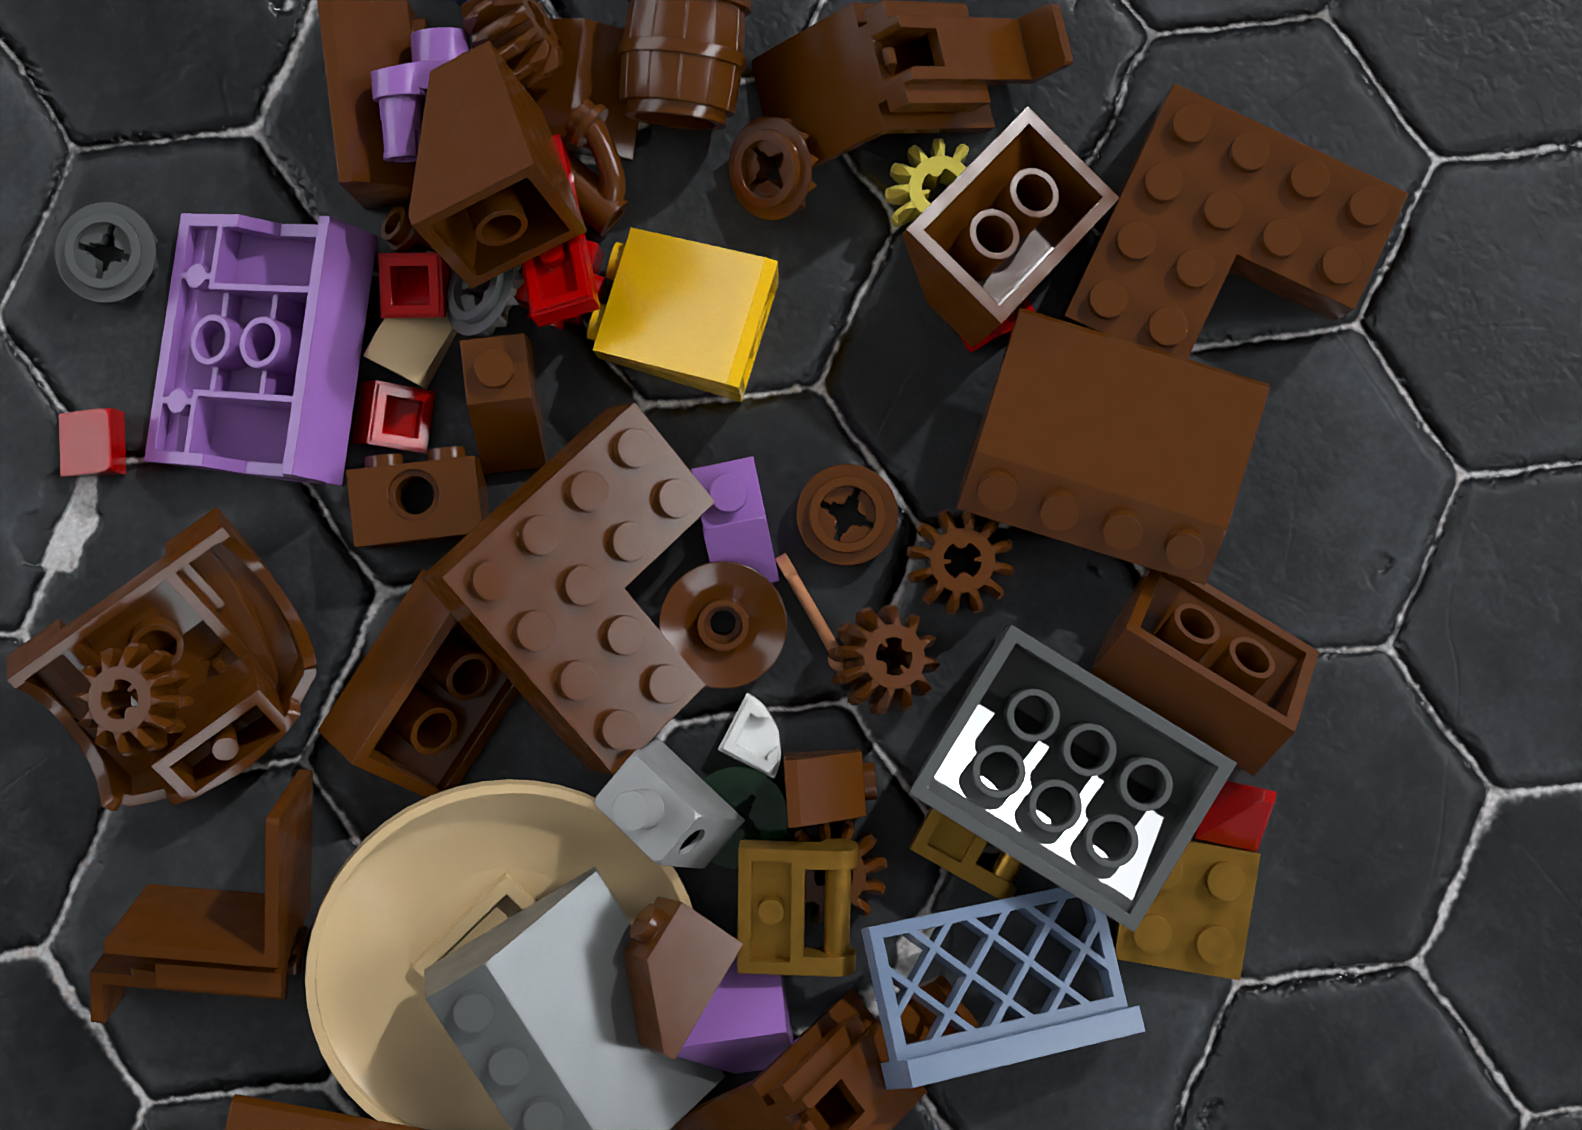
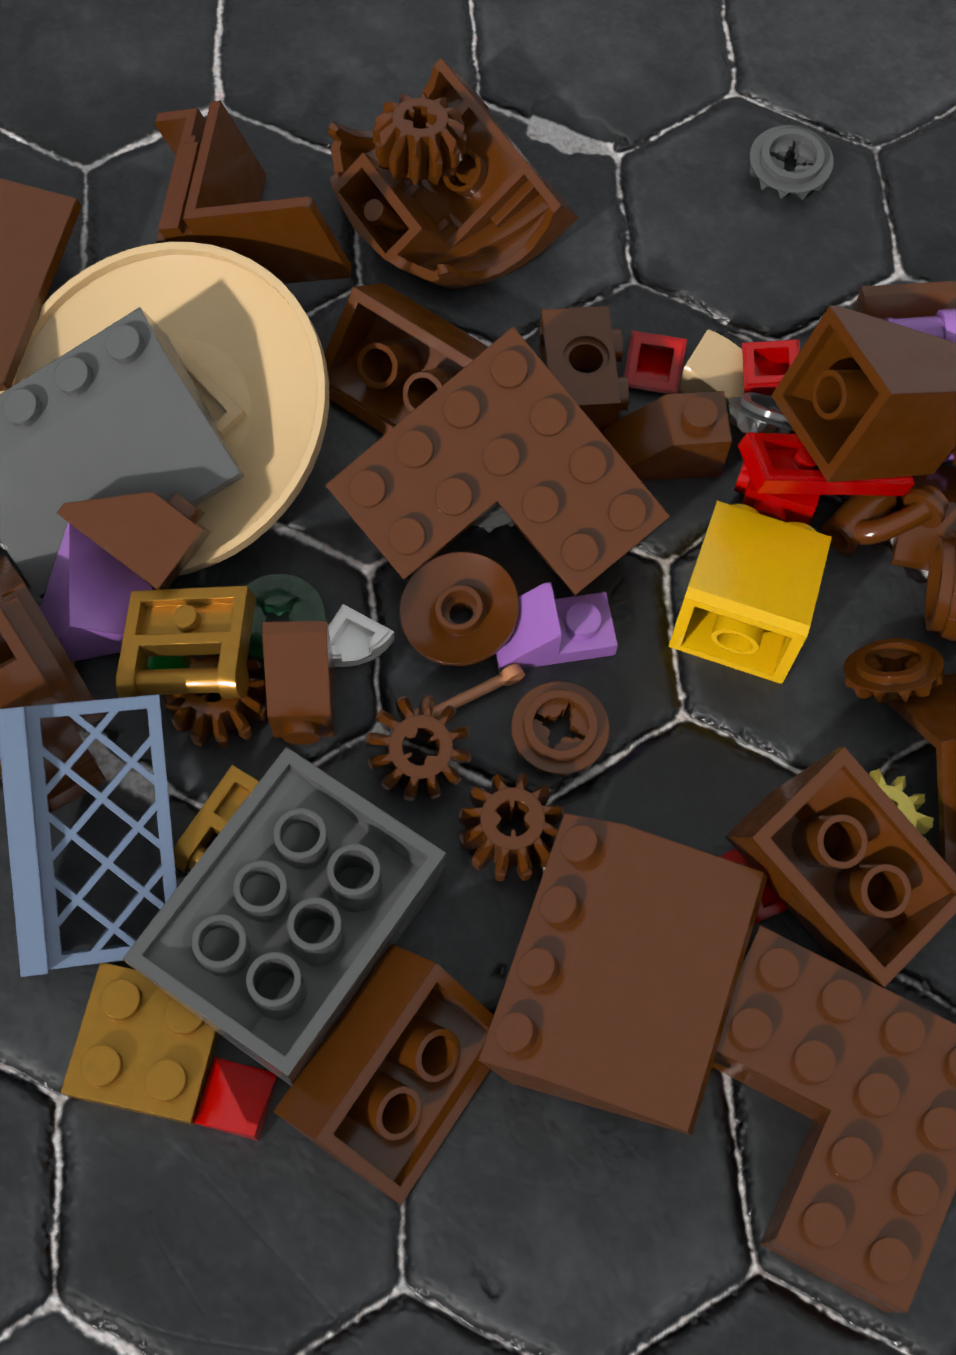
camera: 90 degrees right, 20 degrees down
(92, 443) = (632, 150): slope -> none
(261, 347) = (714, 265): medium lavender piece -> none
(663, 803) = (291, 537): light grey torso -> none

